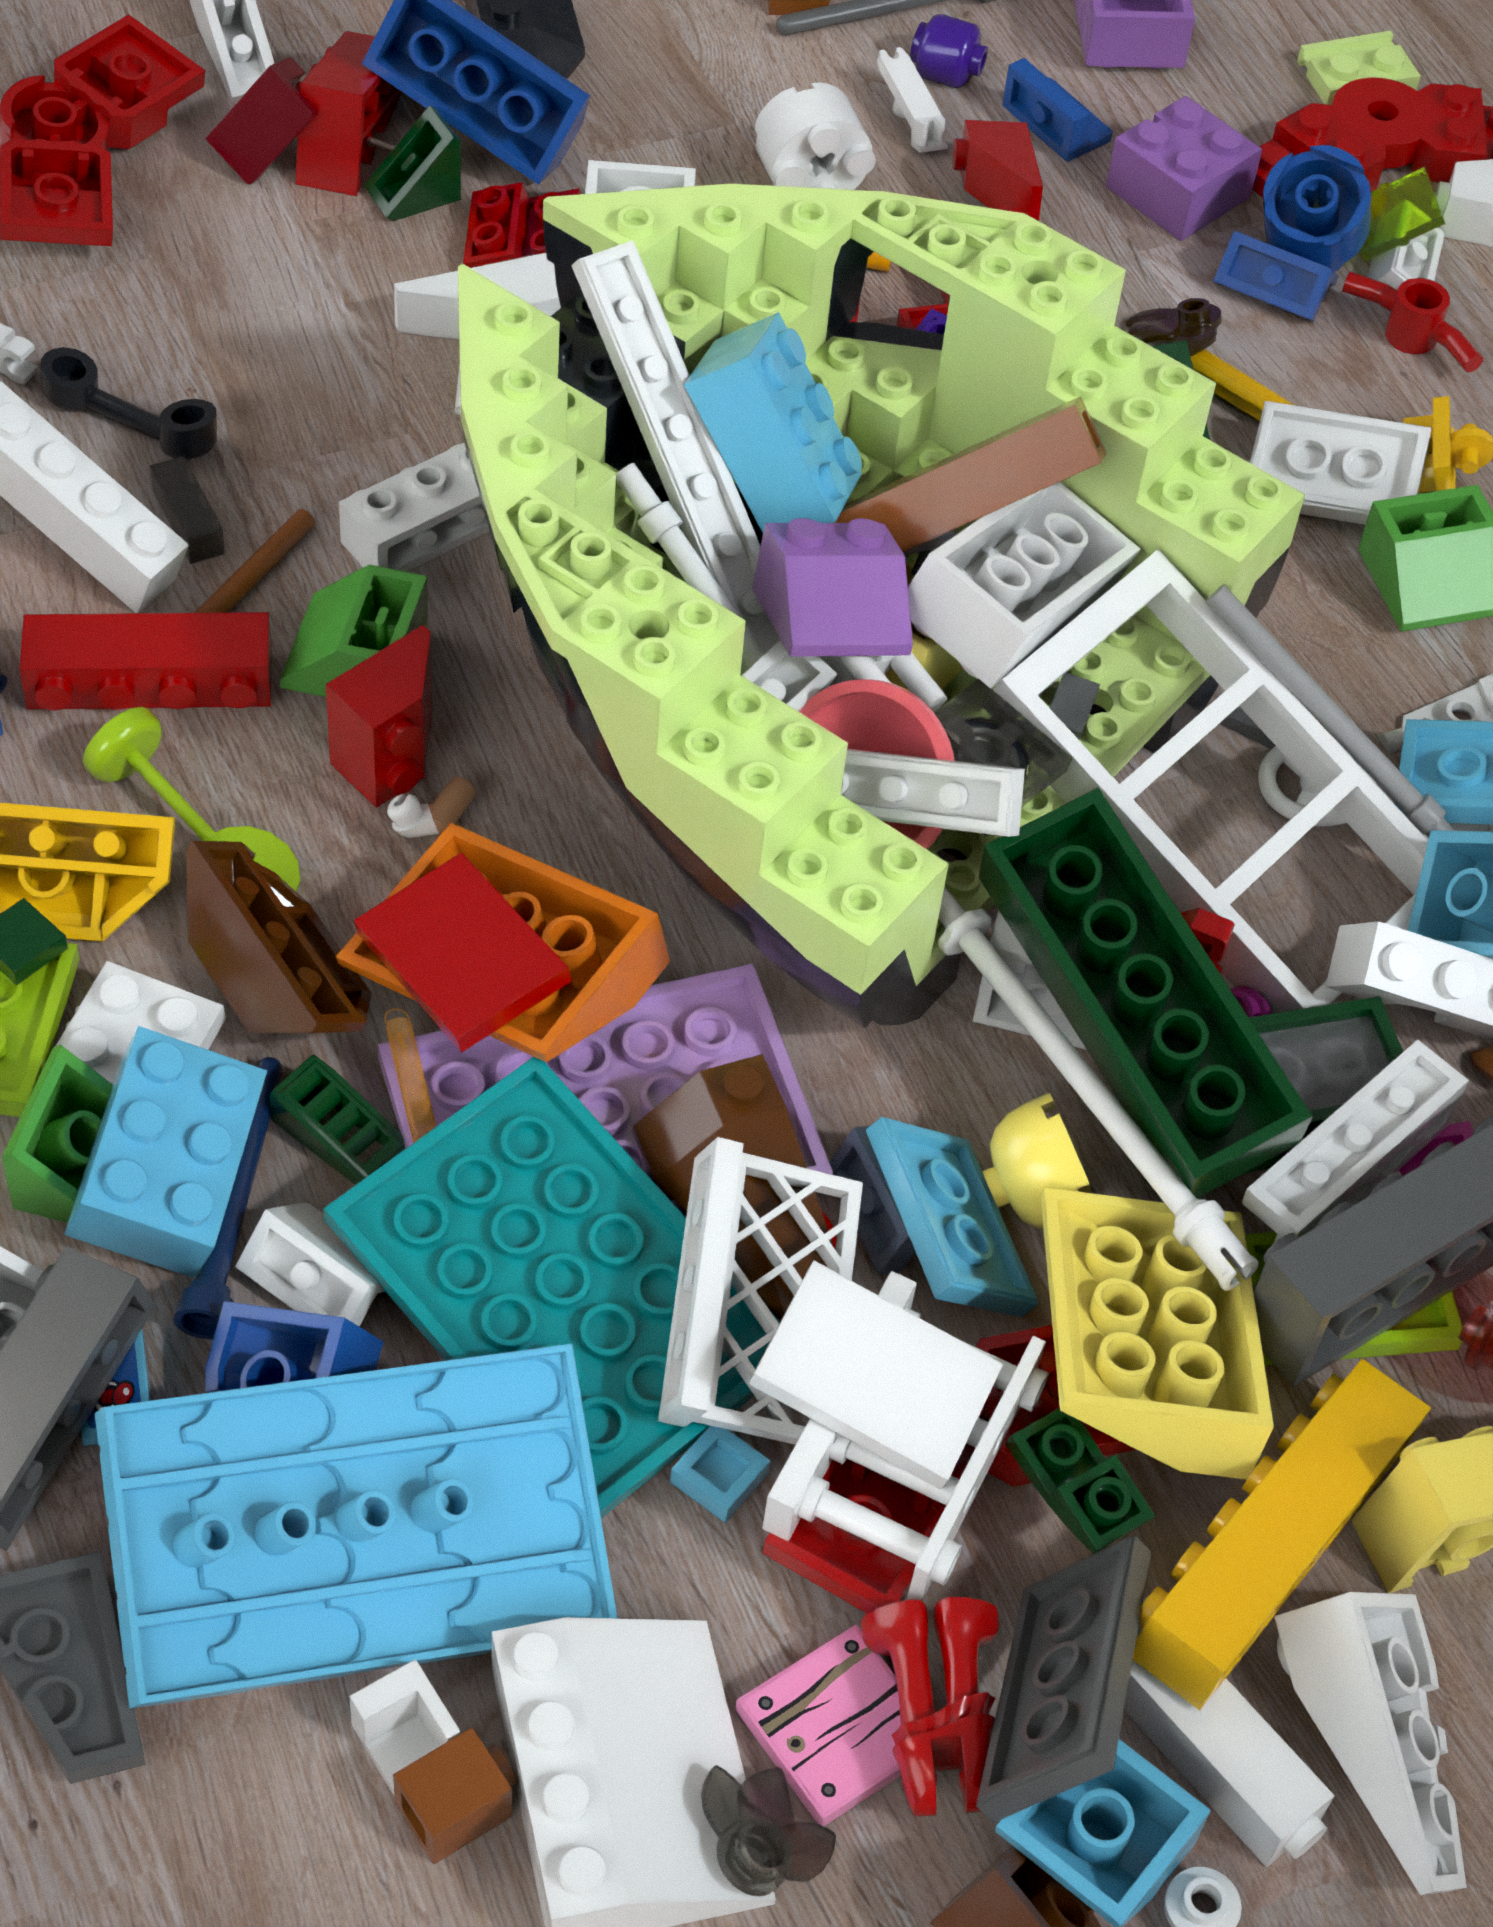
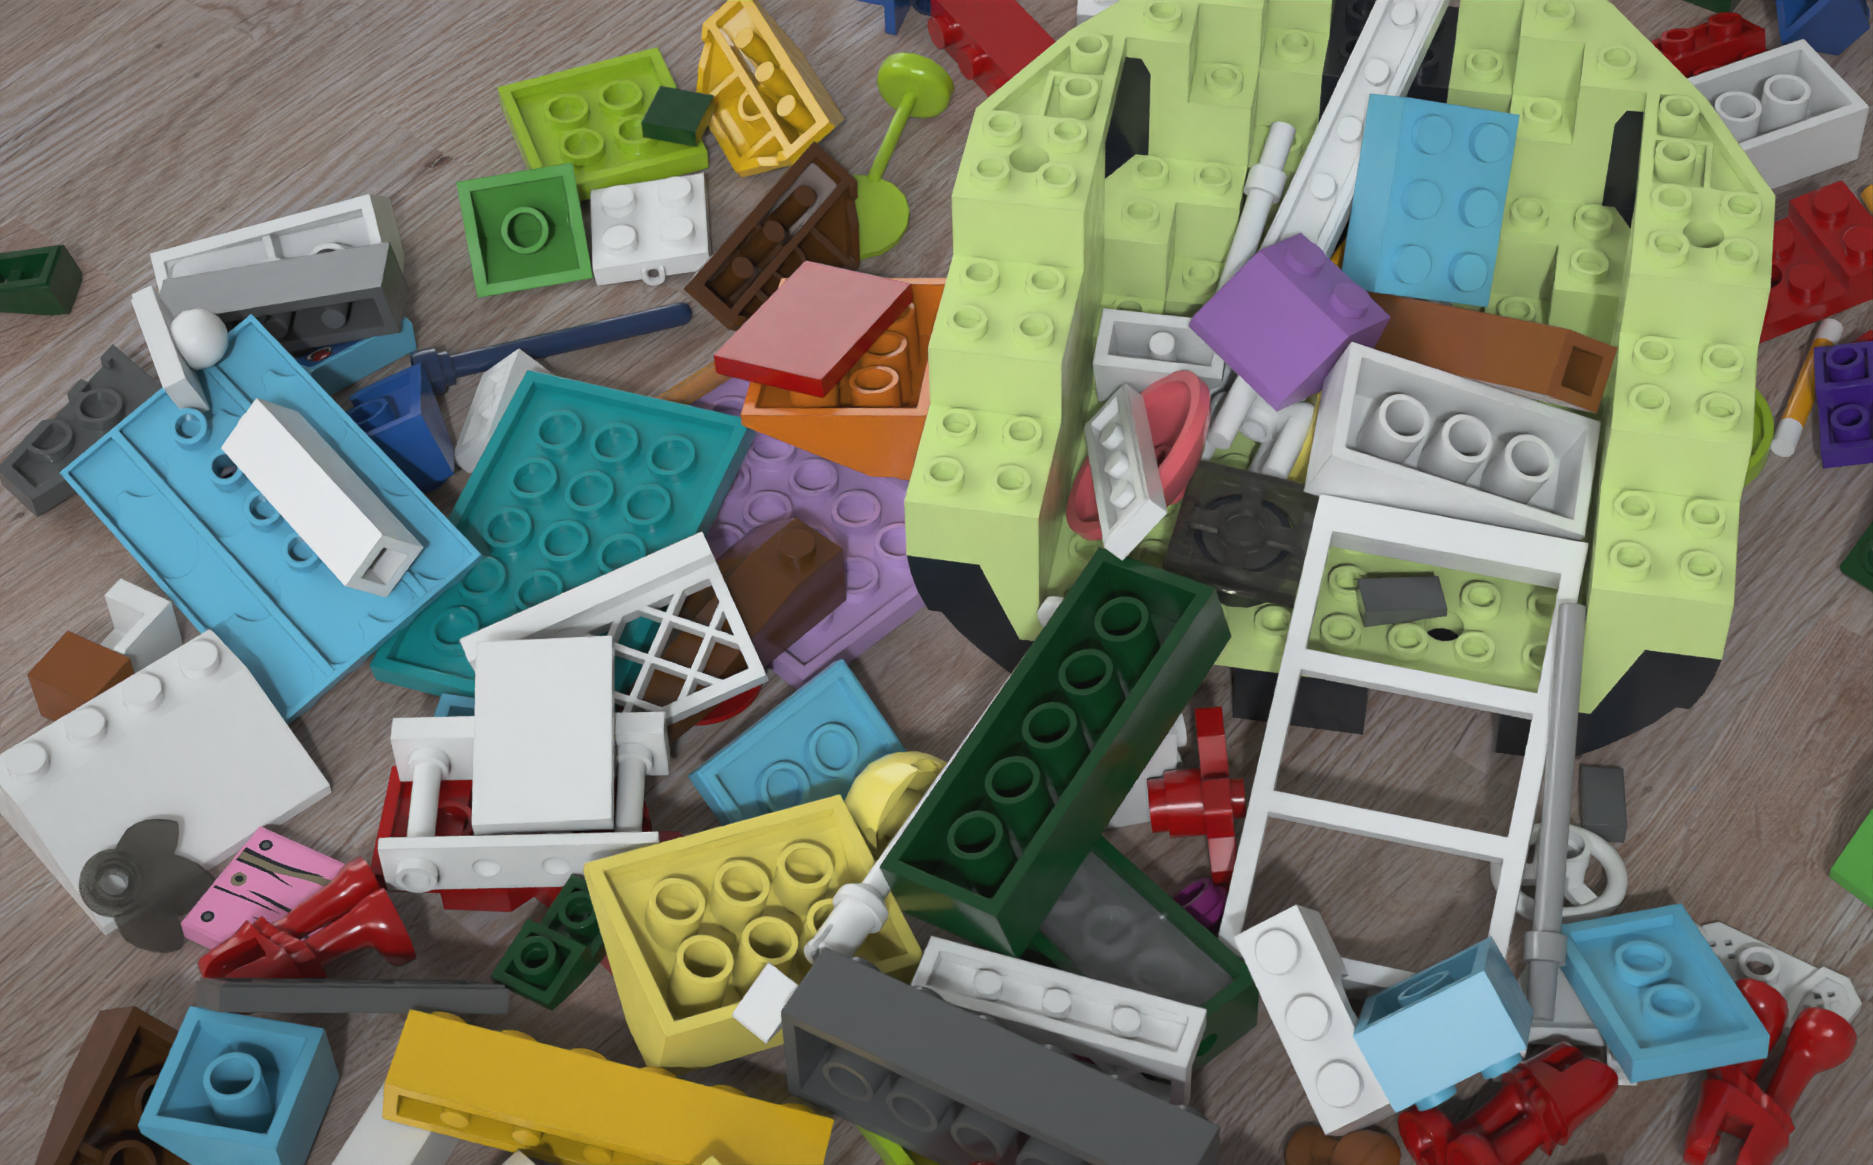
camera: 70 degrees right, 5 degrees down
(115, 1489) = (180, 346): none -> white tile
(166, 1153) = (535, 268): medium azure brick -> none
(309, 1096) = (656, 336): dark green slope -> none
(418, 1446) = (322, 498): none -> white brick
(1272, 1334) = (763, 1003): none -> white piece

